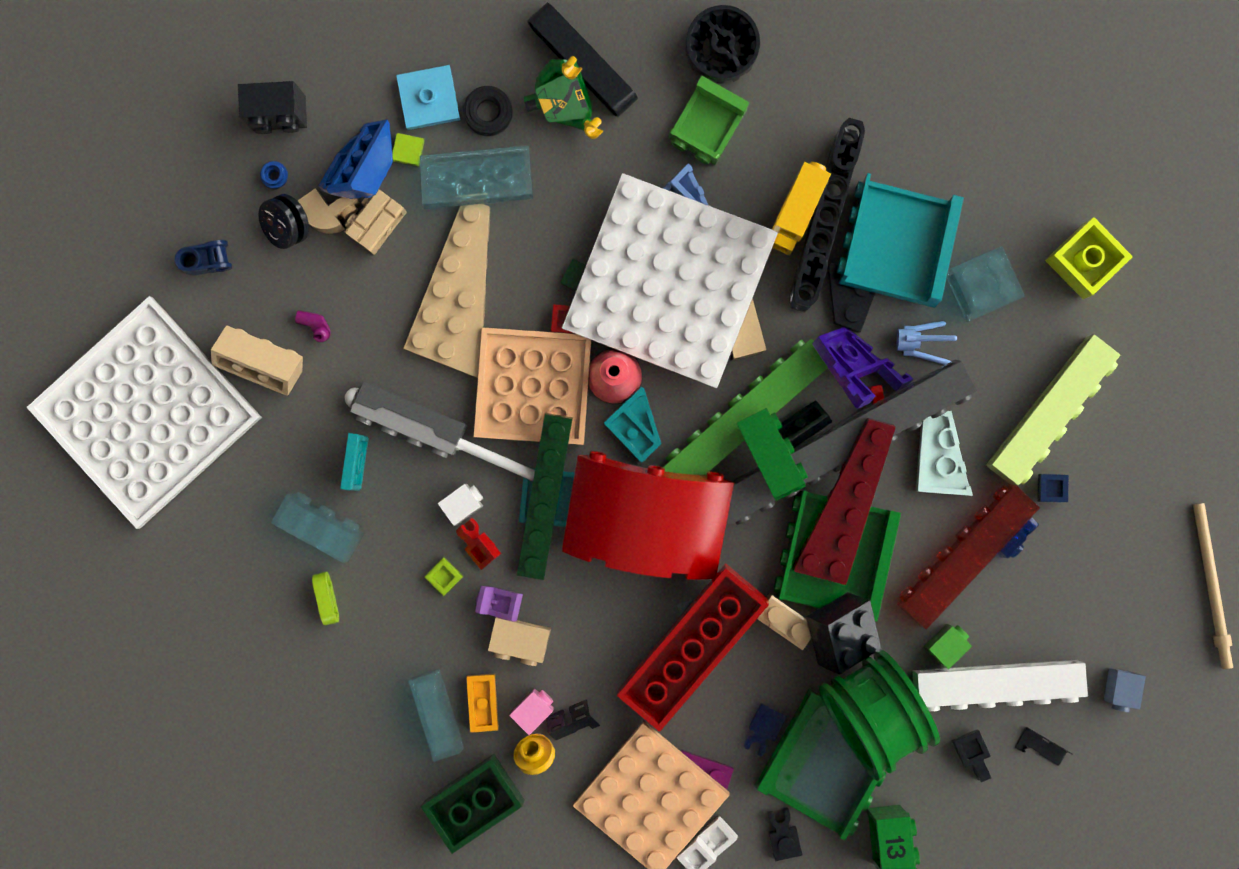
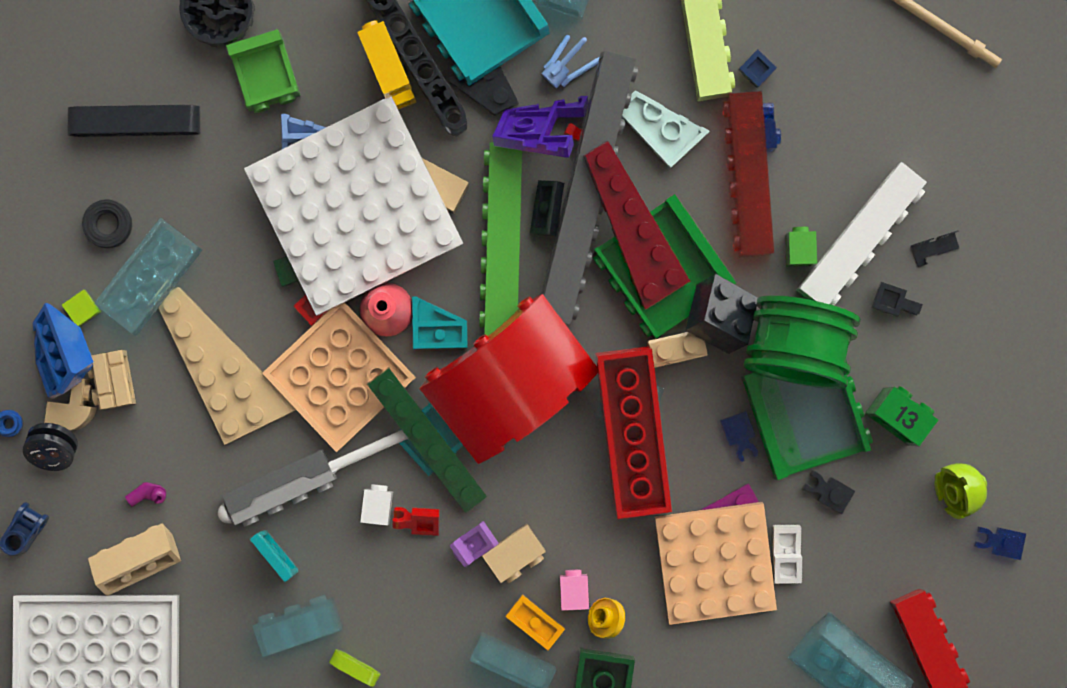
camera: 60 degrees left, 0 degrees up
(428, 97) = (56, 258): medium azure plate -> none
(444, 576) = (418, 567): lime tile -> none
(564, 97) = (149, 159): torso -> none
(576, 725) = (610, 580): black piece -> none
(772, 453) = (546, 246): green brick -> none
(1124, 689) = (947, 151): sand blue brick -> none

